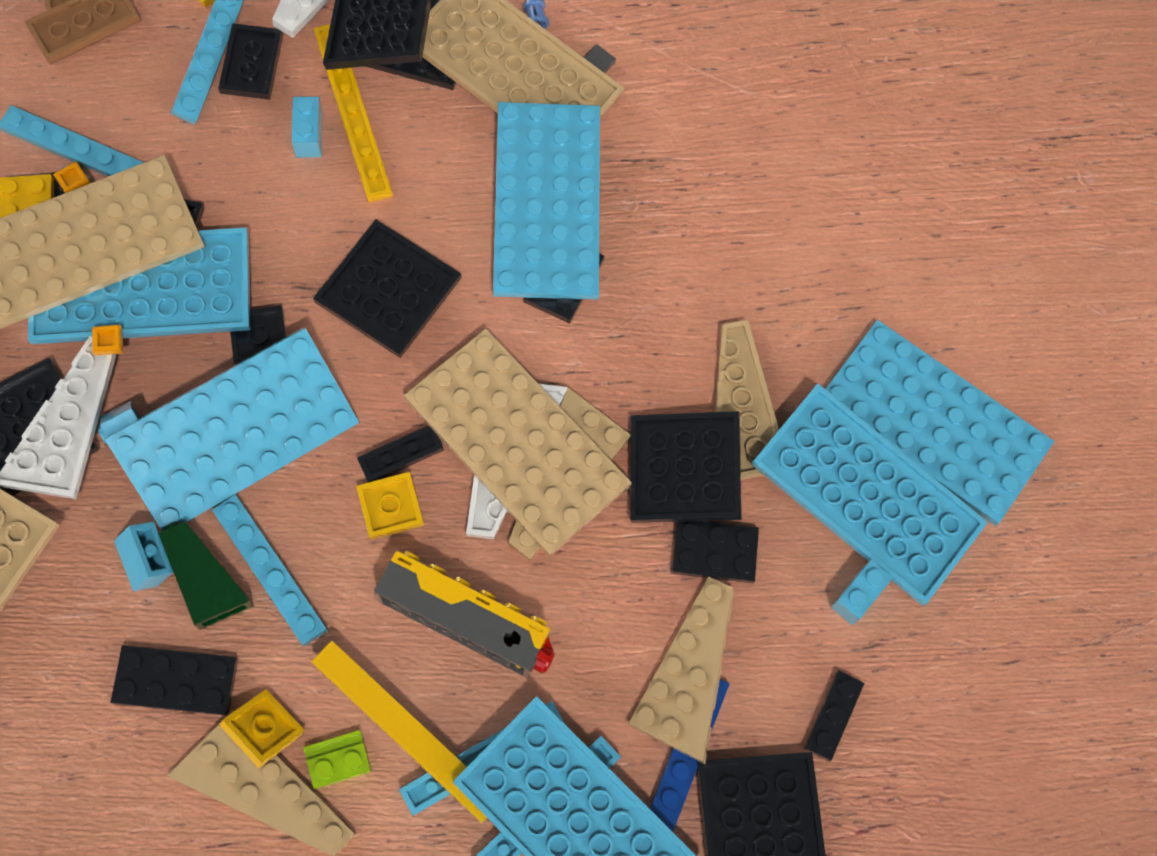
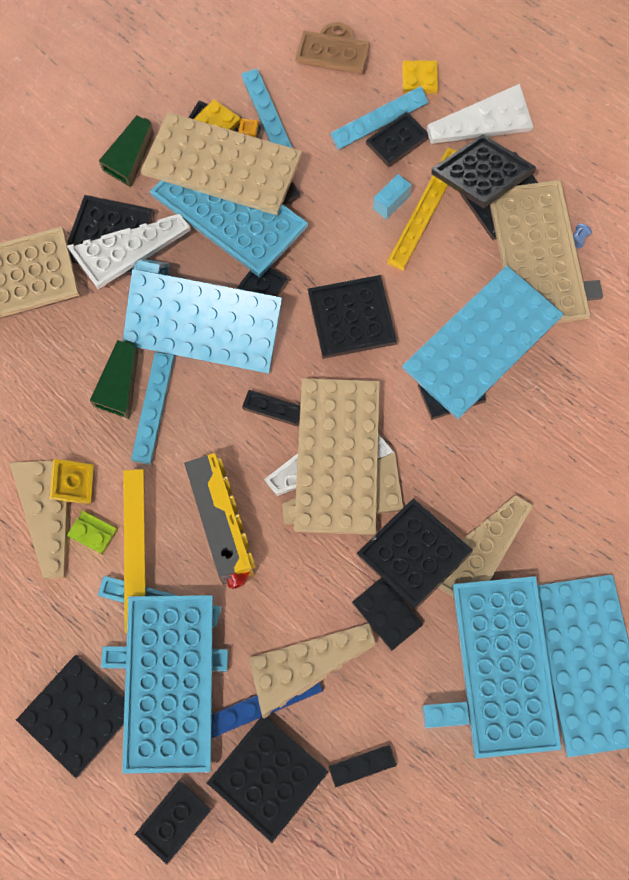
camera: 55 degrees right, 0 degrees up
(107, 340) = (185, 222): light orange tile -> none
(143, 556) = (100, 345): medium azure brick -> none
(174, 680) = (58, 420): black plate -> none
(389, 506) = (241, 429): yellow plate -> none

